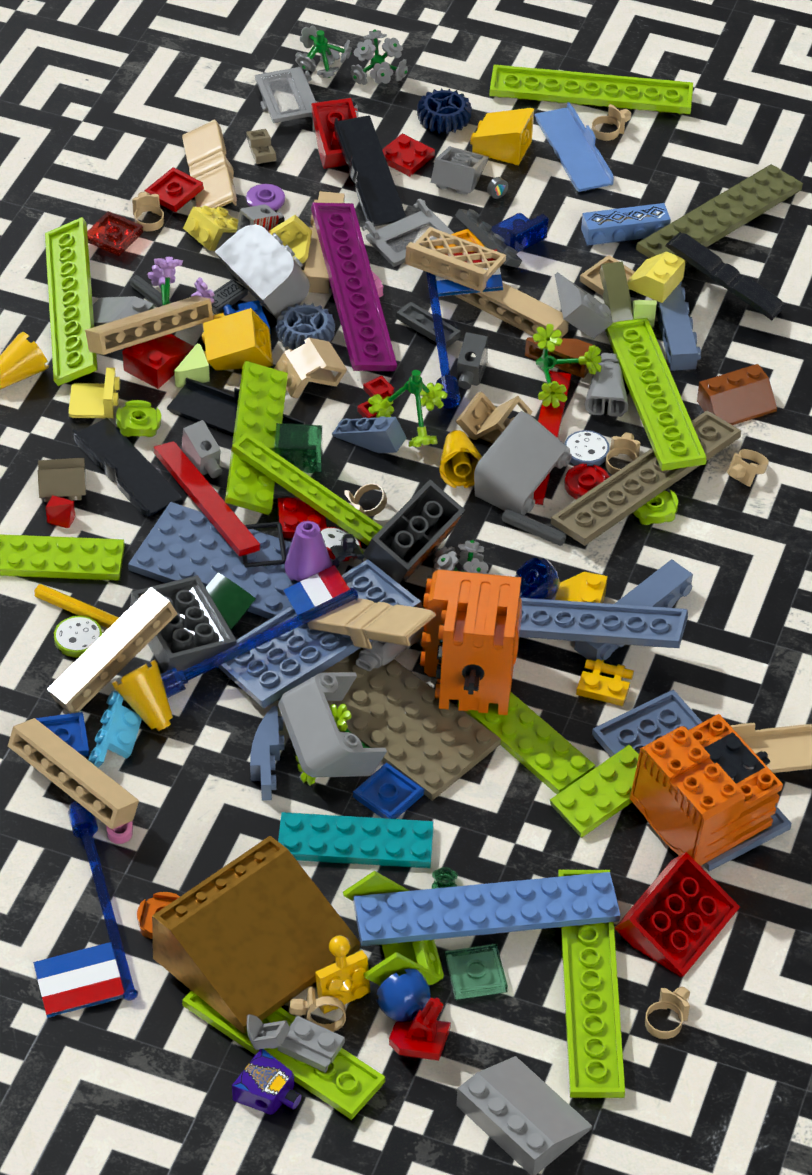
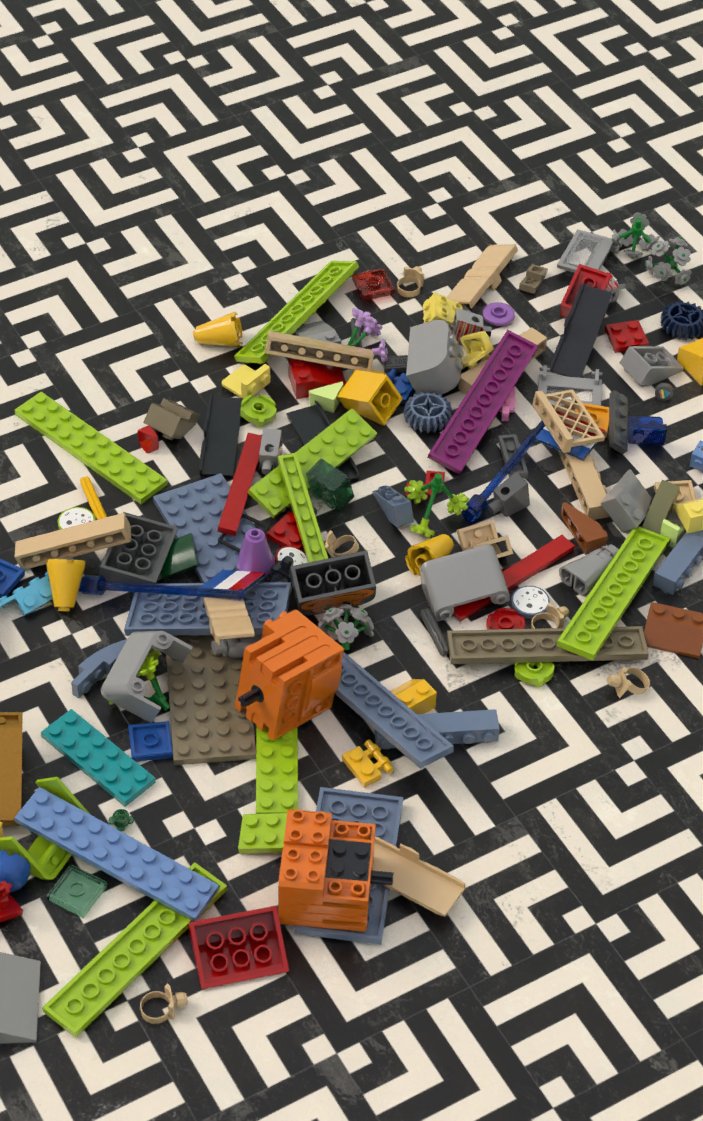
camera: 40 degrees right, 0 degrees up
(175, 189) = (442, 276): red plate -> none
(310, 364) = (402, 437): tan piece -> none
(538, 579) = (389, 668): clear blue cylinder -> none
(547, 340) = (561, 509): lime plant -> none

